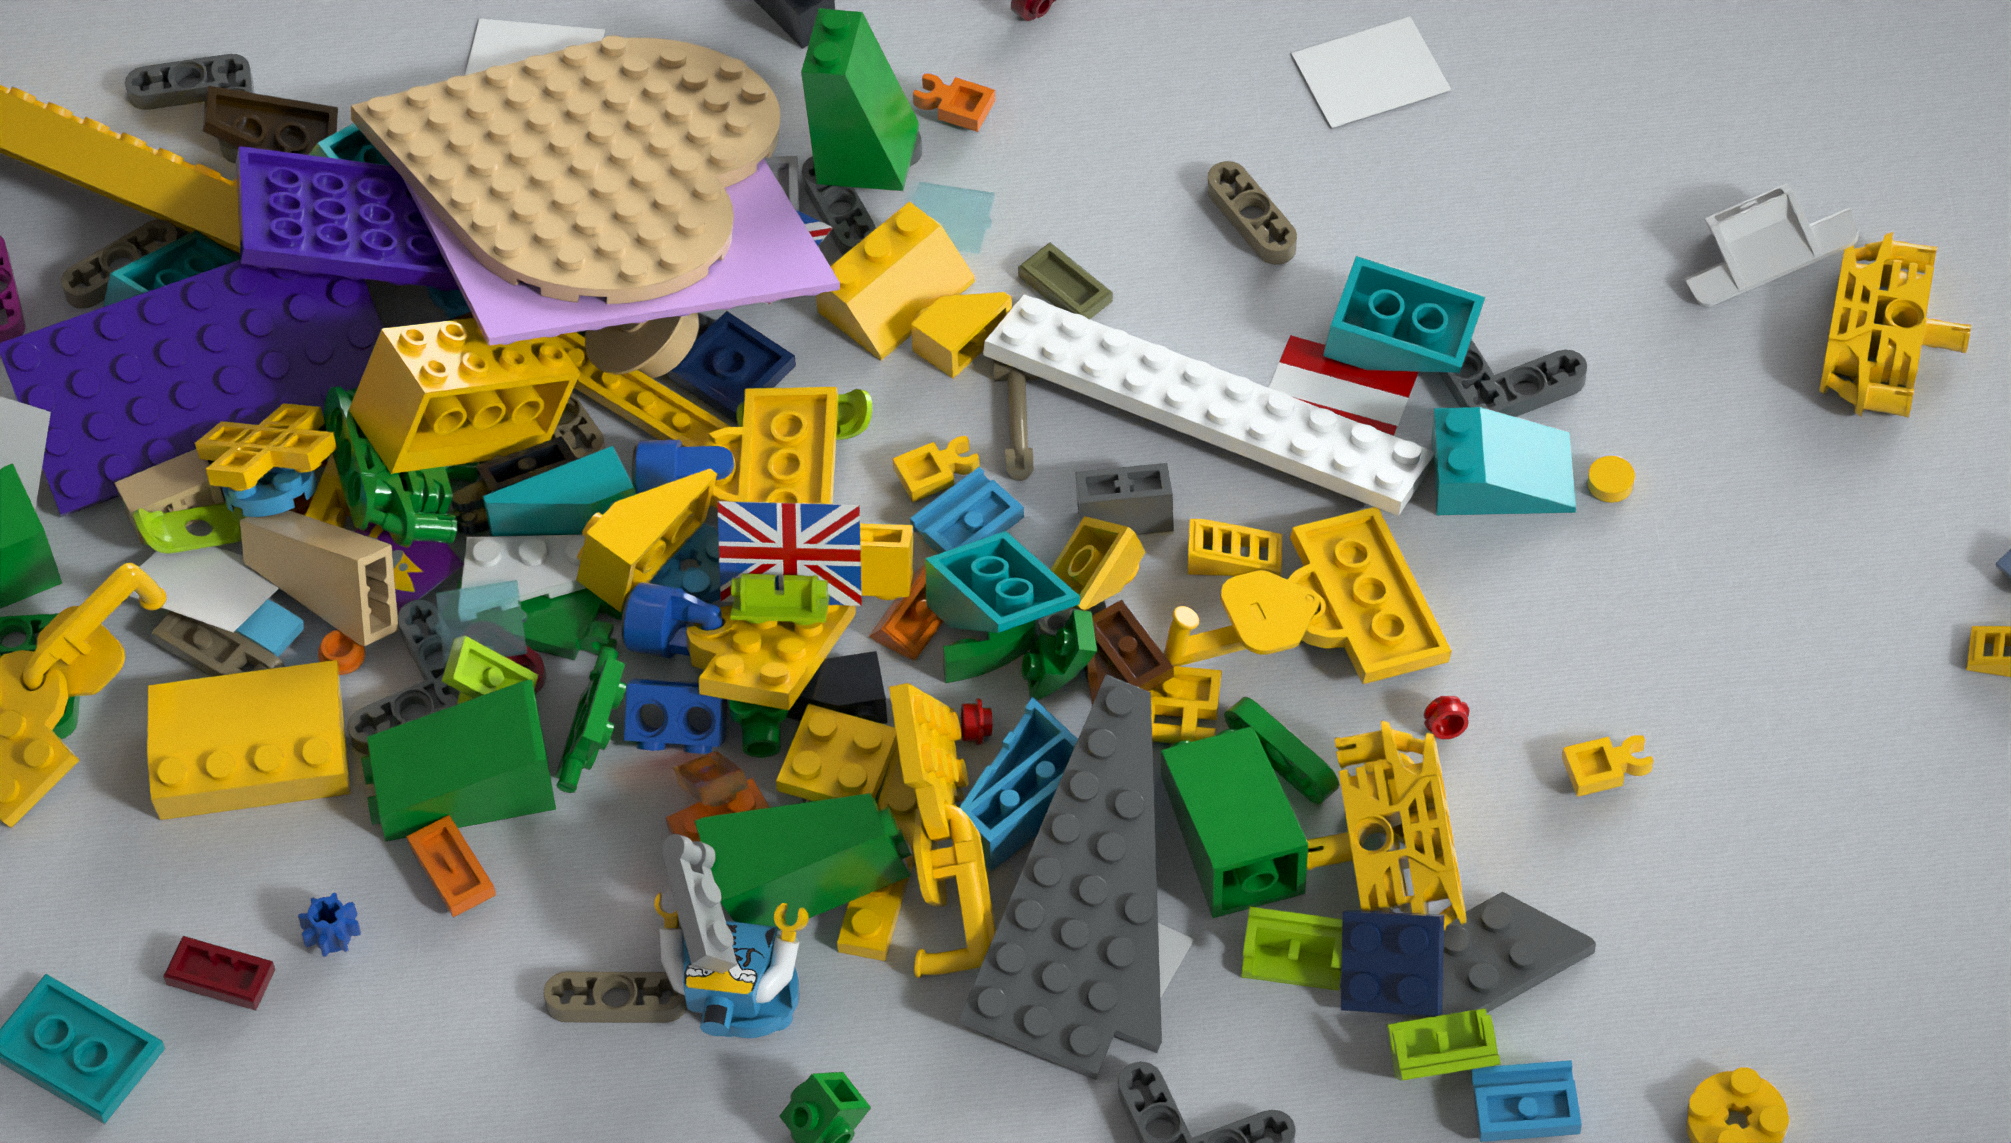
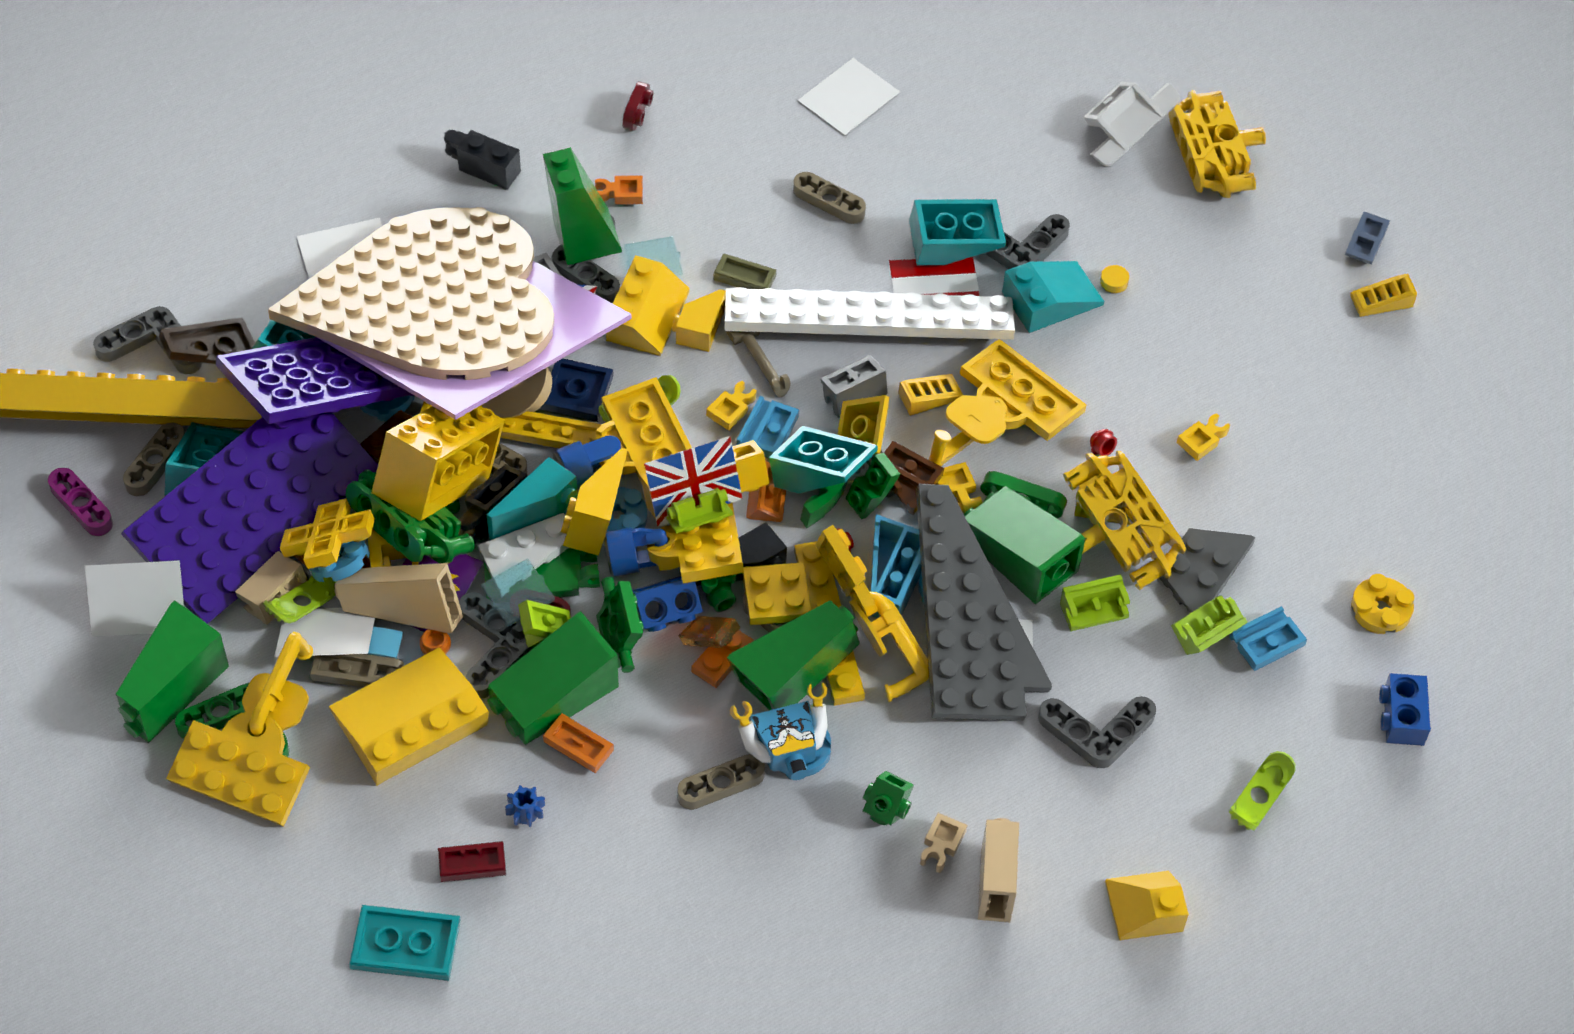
camera: 30 degrees left, 0 degrees up
(698, 903) = (760, 701): light grey plate -> none
(1392, 962) = (1158, 588): dark blue plate -> none

